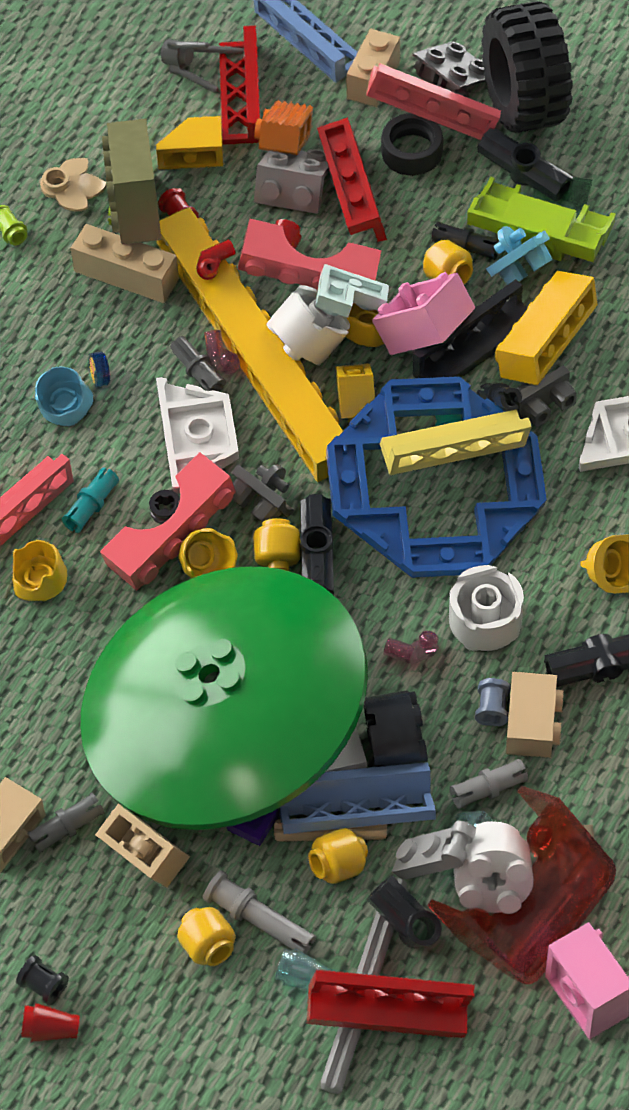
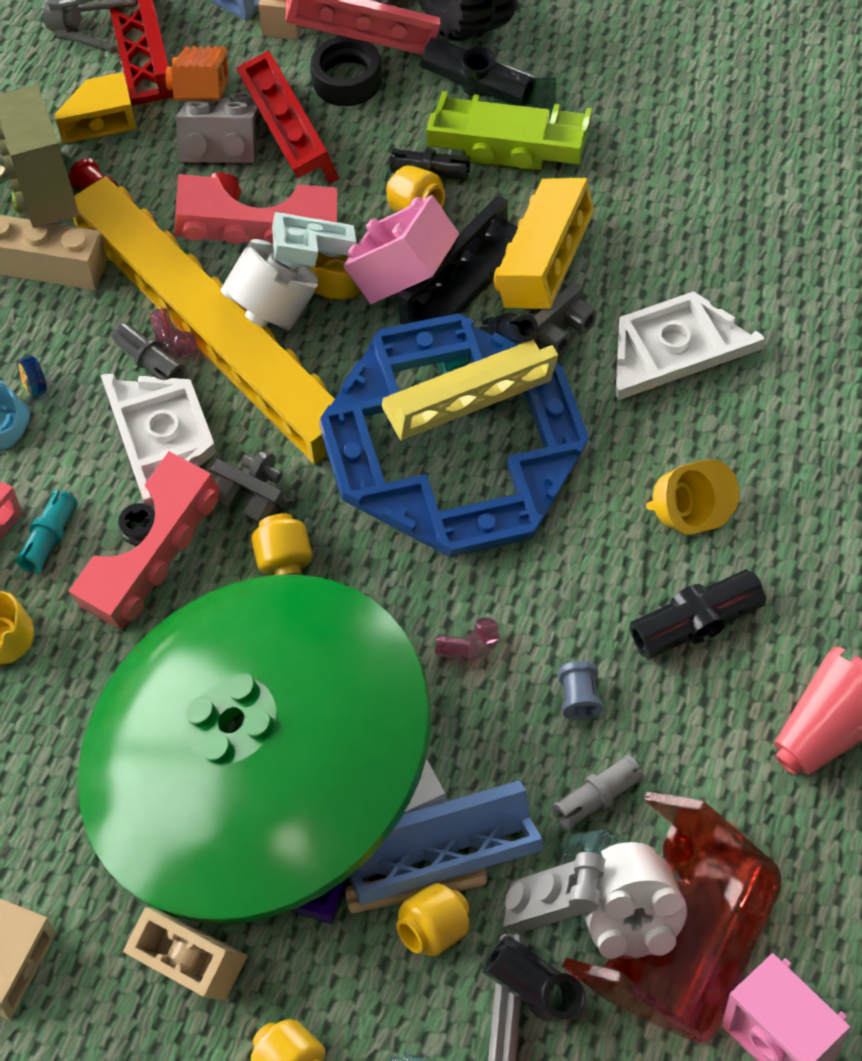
camera: 10 degrees left, 0 degrees up
(65, 823) = (82, 940): dark grey pin -> none
(207, 552) = (199, 569): yellow hair -> none
(210, 259) = (141, 228): red arm -> none
(244, 905) = (328, 1006): light grey pin -> none
(317, 531) = (324, 523): black piece -> none
(354, 388) = (337, 349): yellow slope -> none
(395, 729) = (471, 747): black brick -> none
(486, 608) = (547, 578): white brick -> none
(532, 715) = (632, 697): tan brick -> none
(533, 250) = (510, 160): medium azure hips -> none

